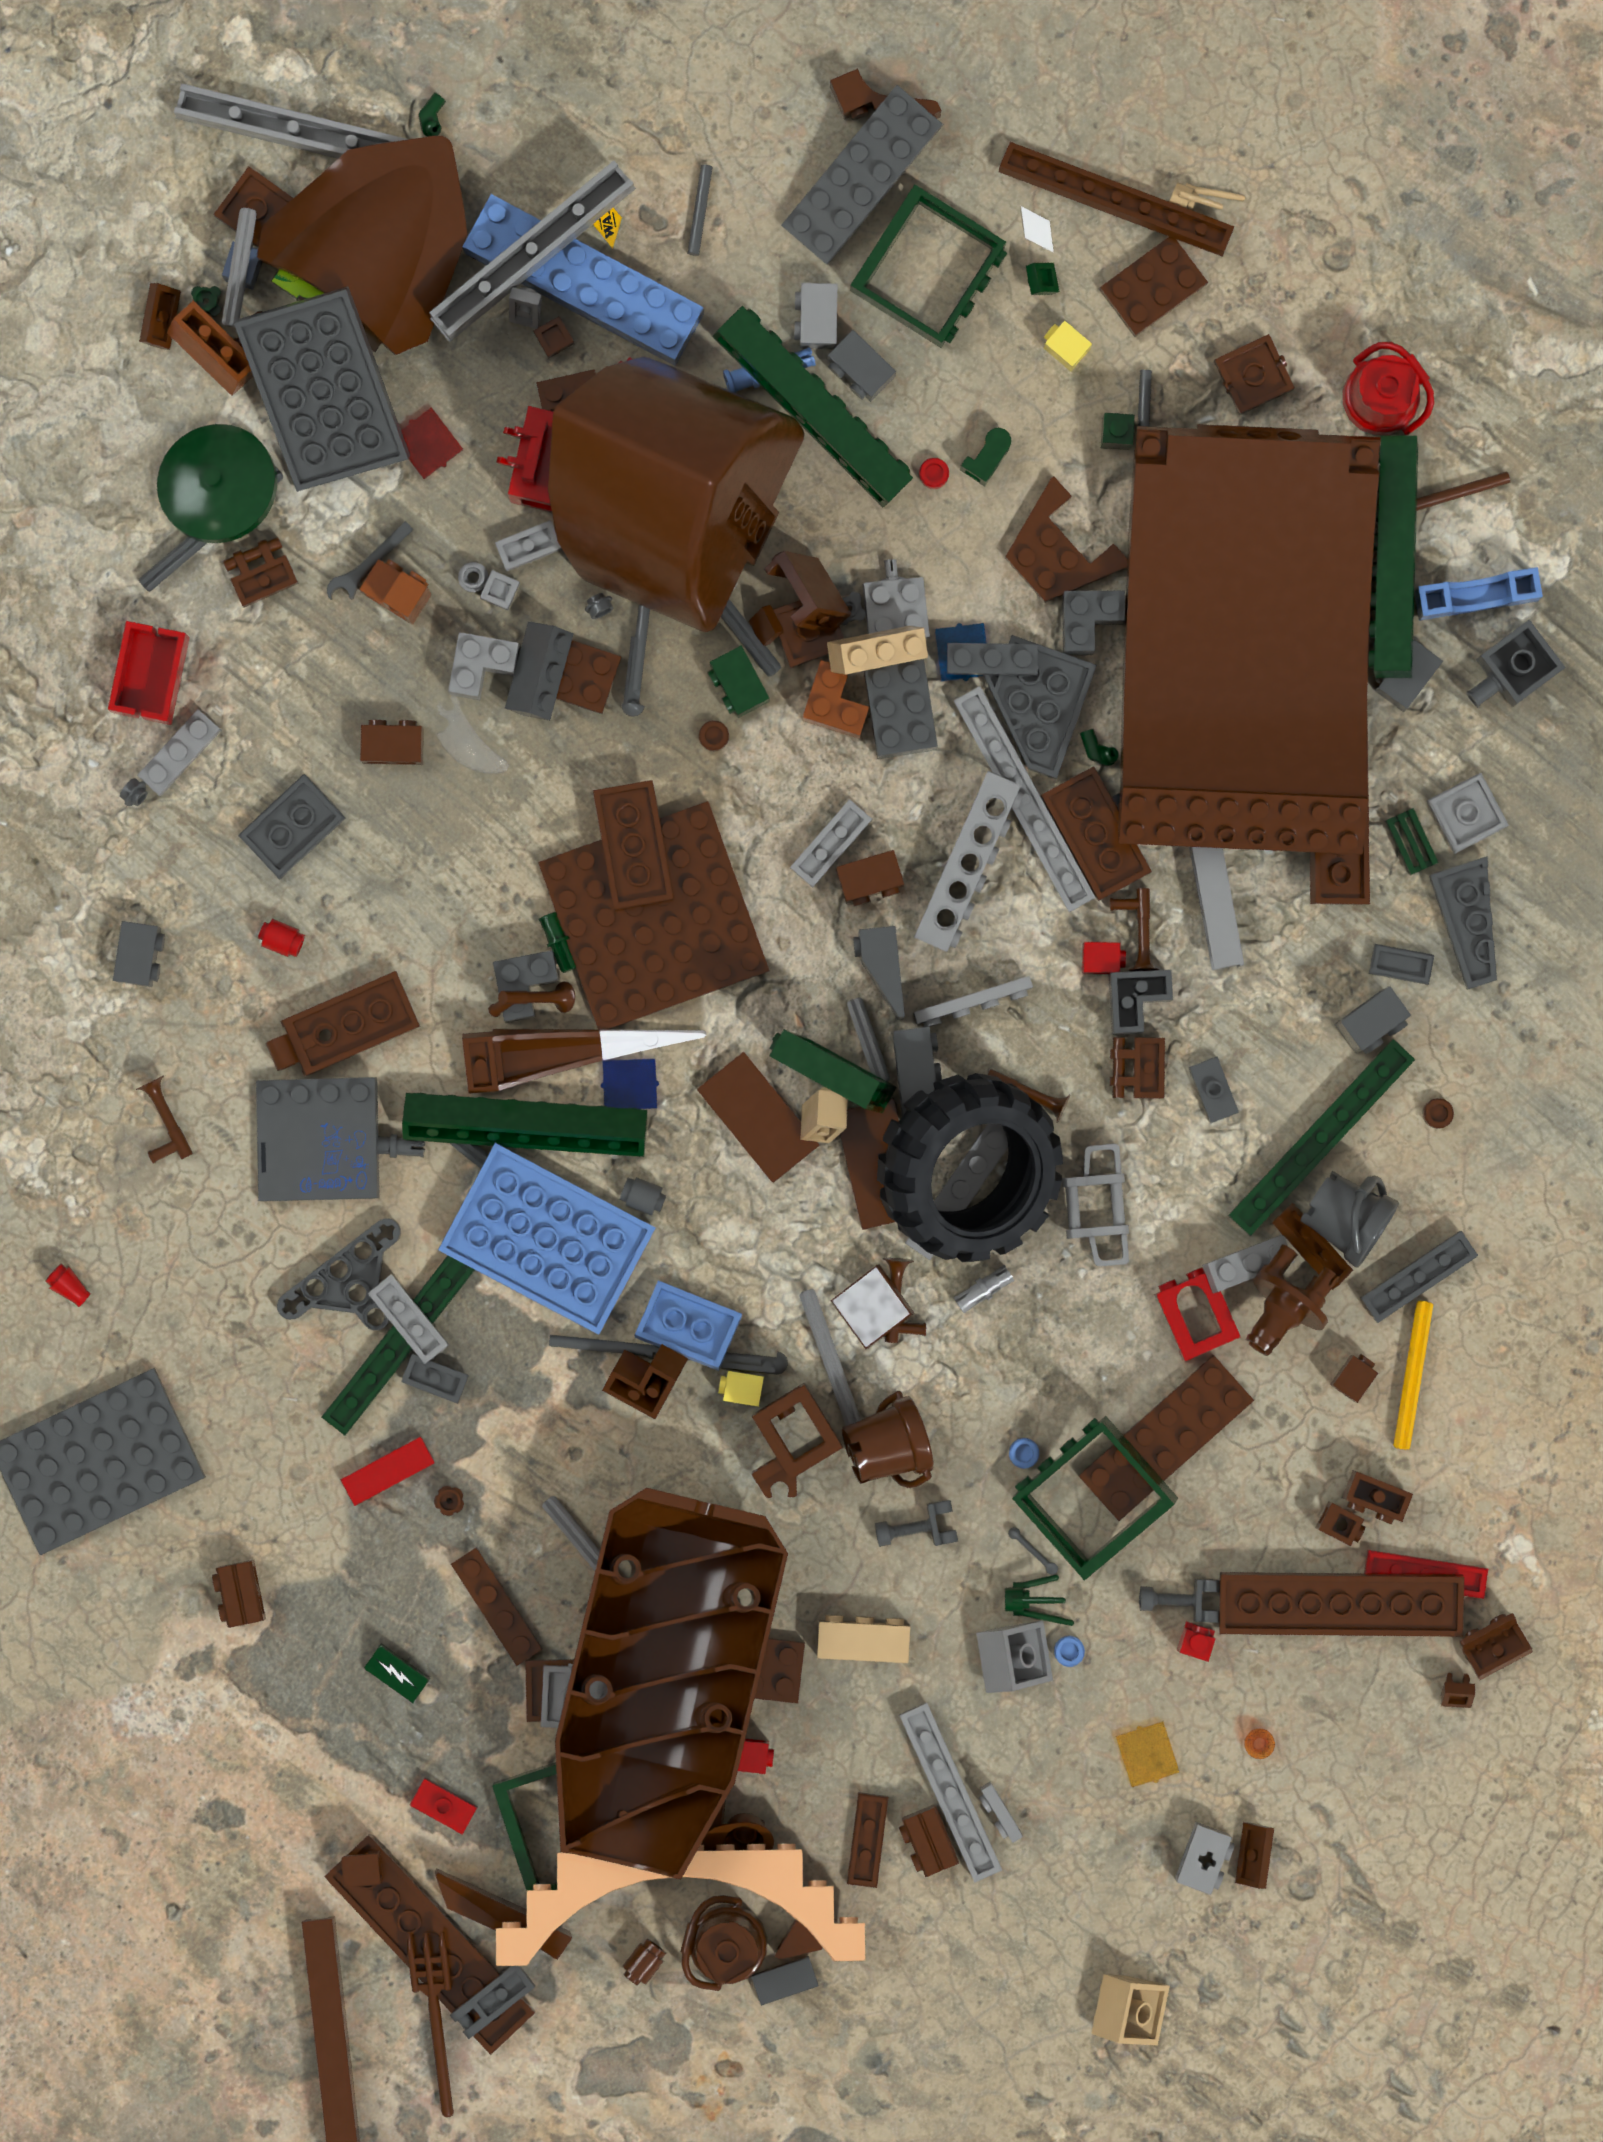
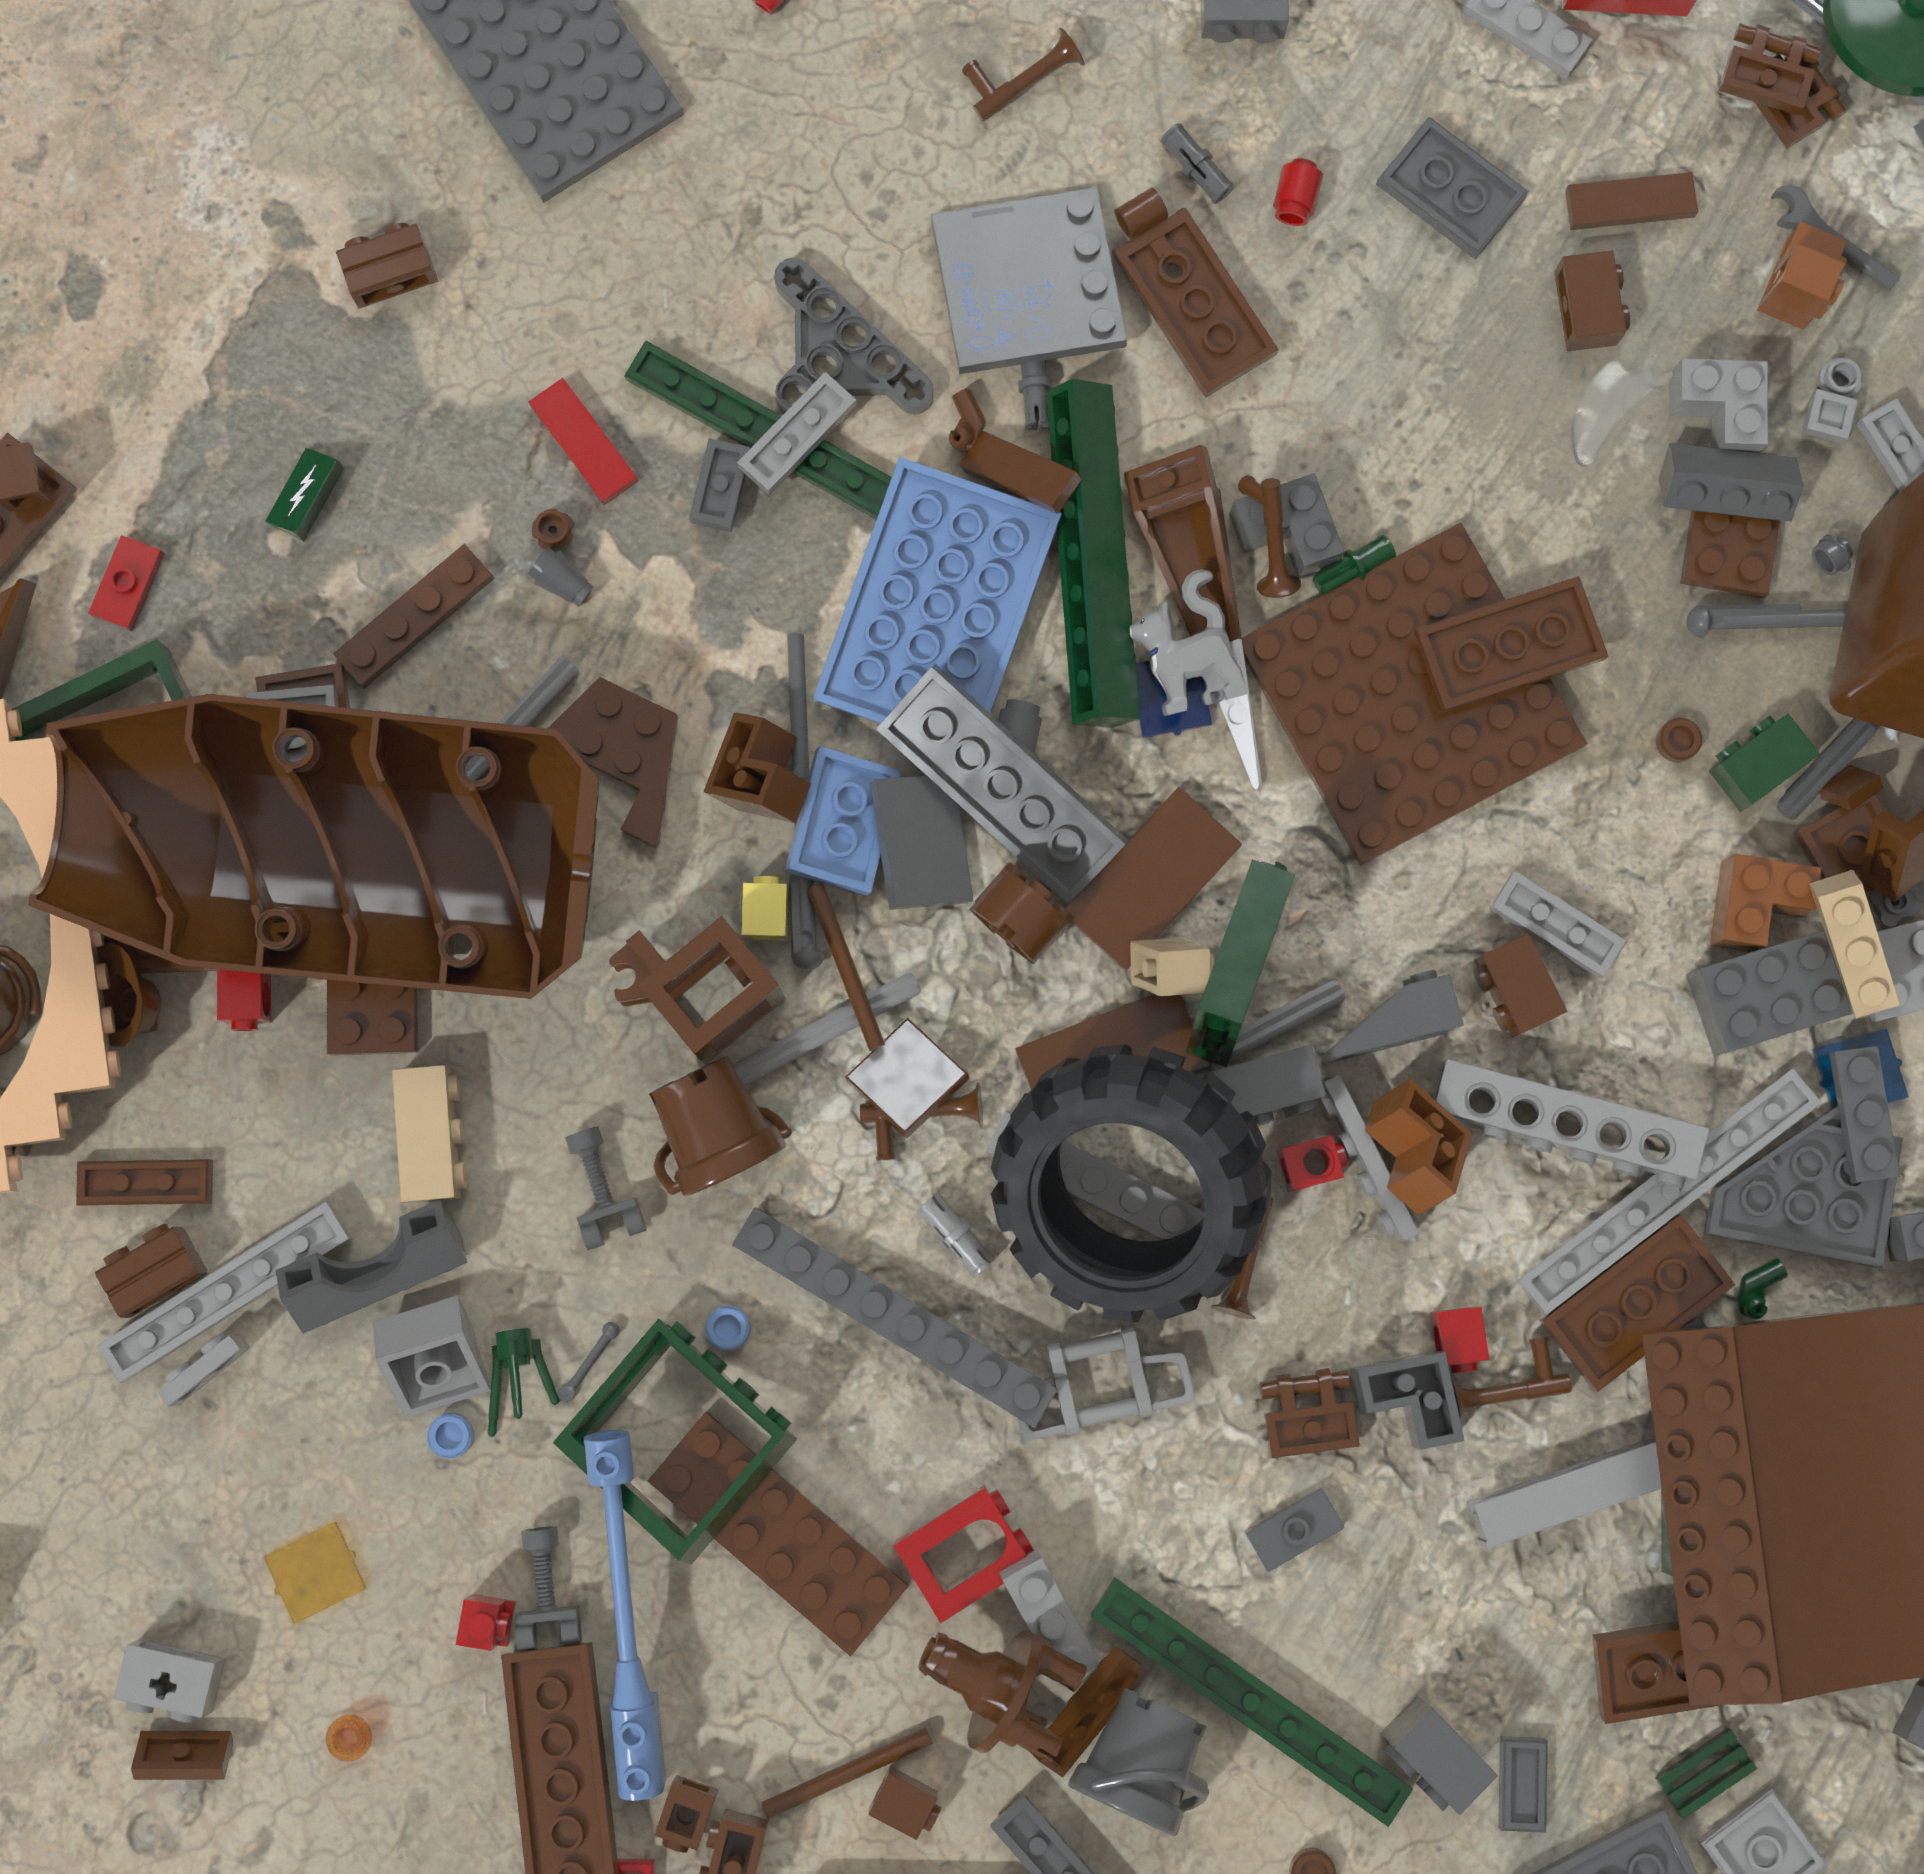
camera: 80 degrees right, 5 degrees down
(248, 1005) = (1197, 163): none -> dark grey pin
(251, 594) = (1766, 78): none -> reddish brown plate
(321, 701) = (1631, 201): none -> reddish brown tile
(416, 1195) = (971, 421): none -> reddish brown arm
(460, 1166) = (1020, 472): none -> reddish brown tile
(485, 1499) = (559, 576): none -> dark grey cone
(607, 1469) = (629, 742): none -> reddish brown wing
(608, 1062) = (1202, 654): none -> light grey animal
(680, 1212) = (1002, 784): none -> plate
(710, 1273) = (920, 843): none -> dark grey tile
(771, 1212) = (1021, 913): none -> reddish brown brick
(790, 1337) = (846, 967): none -> reddish brown bar
(960, 1719) = (326, 1290): none -> dark grey arch
(970, 961) = (1426, 1144): none -> dark orange brick
(970, 1052) = (1292, 1164): none -> red brick
(1033, 1339) = (895, 1317): none -> dark grey plate
(1265, 1549) = (633, 1707): none -> medium blue bar
(1330, 1413) = (846, 1773): none -> reddish brown bar

